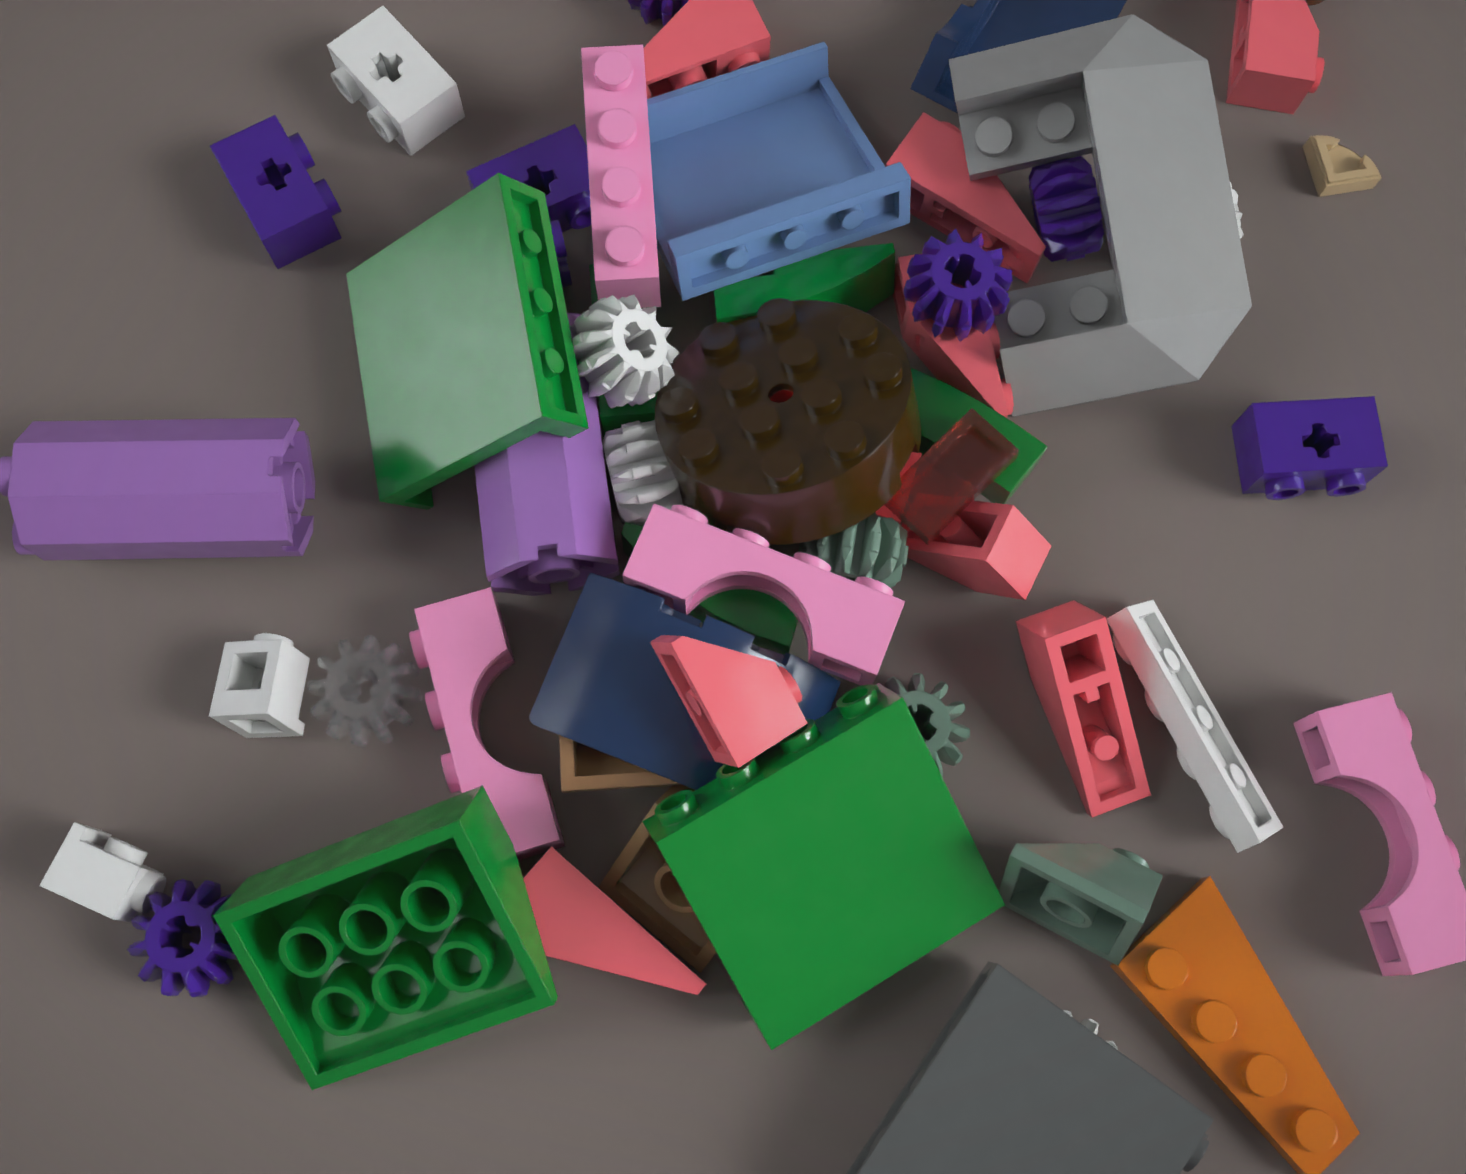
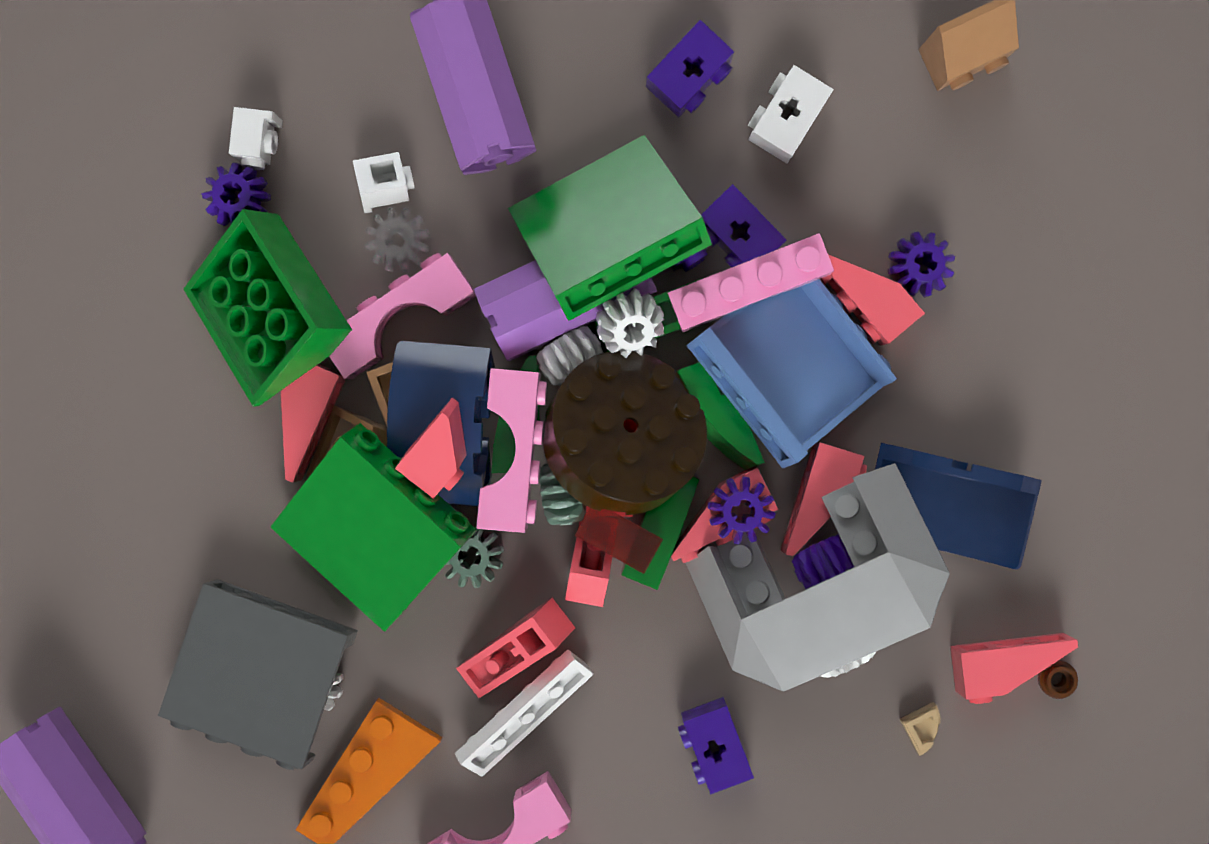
camera: 75 degrees right, 15 degrees up
(1082, 893) = (406, 677): sand green slope -> none

